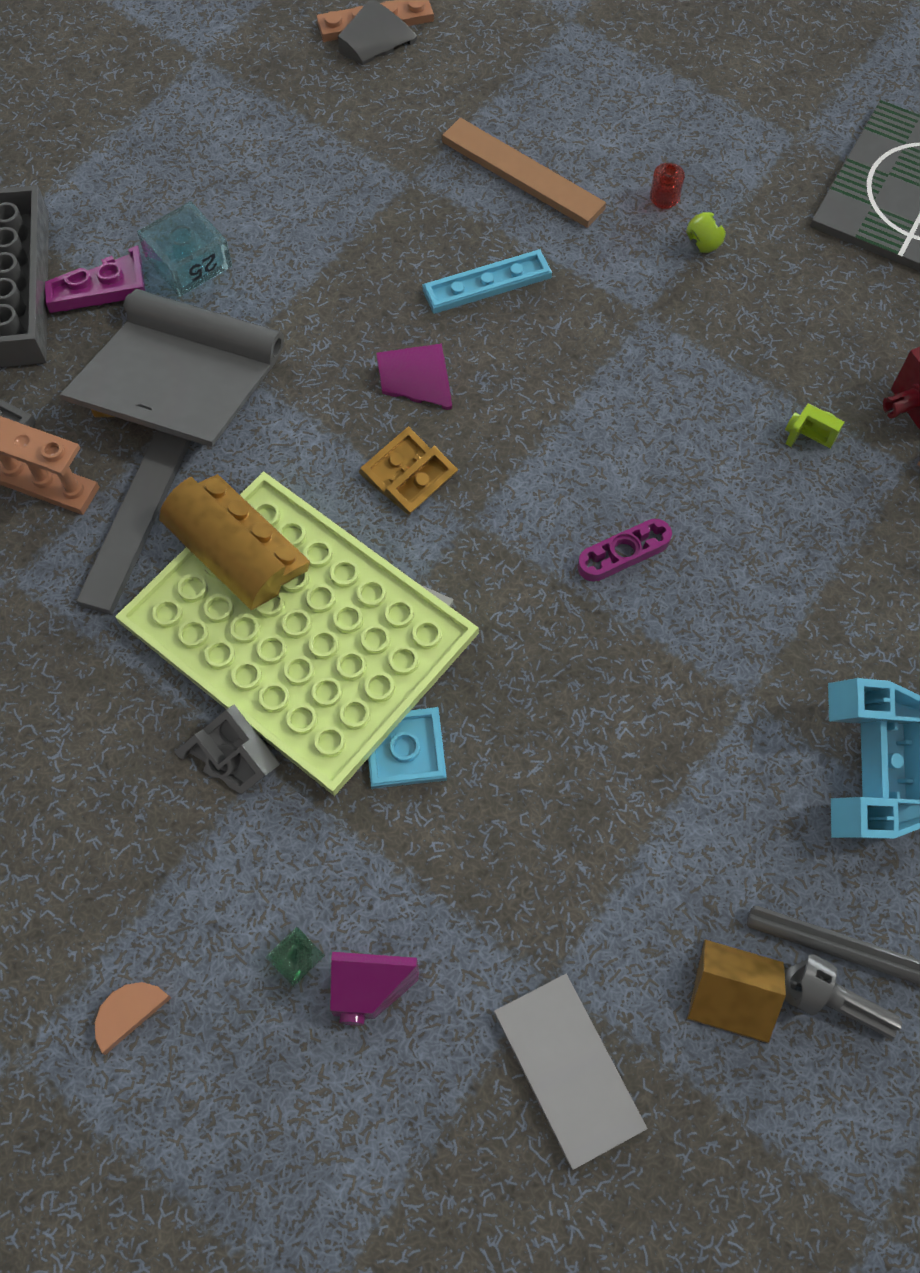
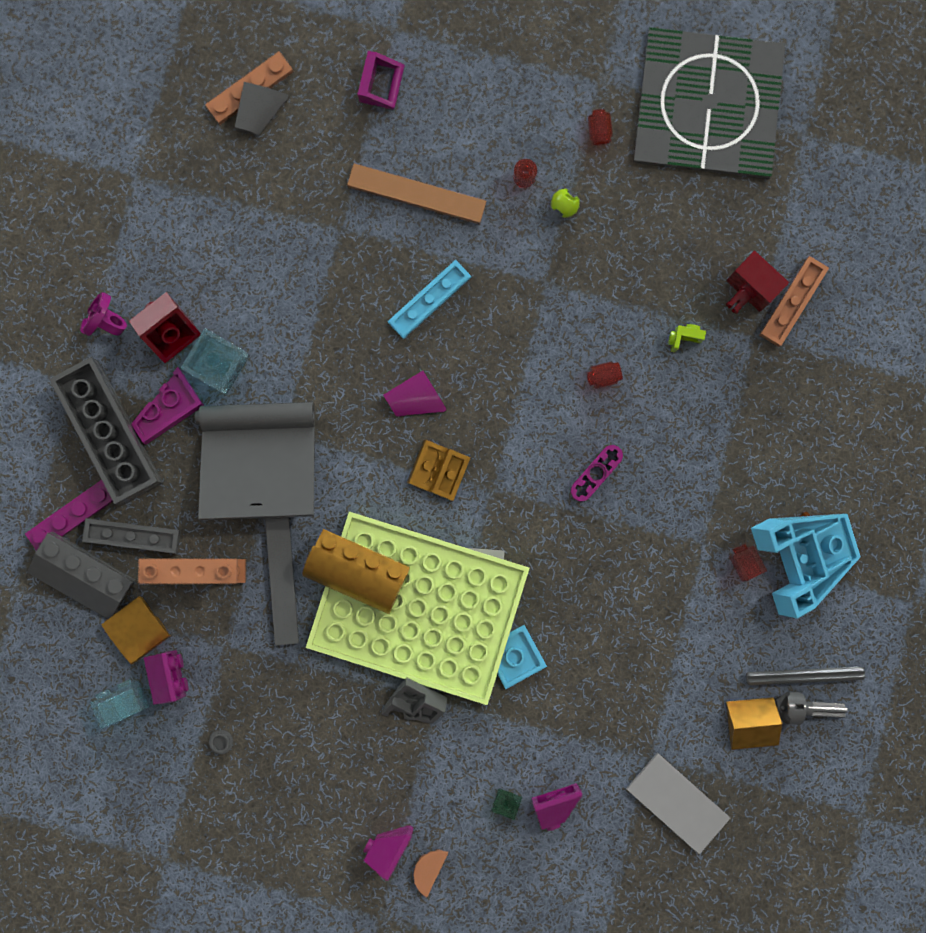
camera: 20 degrees left, 20 degrees up
(74, 157) = (101, 317): none -> magenta tile
(81, 945) = (386, 850): none -> magenta slope
(142, 187) = (165, 327): none -> dark red brick
(519, 41) = (364, 92): none -> magenta tile
(683, 433) = (604, 374): none -> clear red brick
(781, 174) = (600, 127): none -> clear red brick
(806, 742) = (747, 562): none -> clear red brick

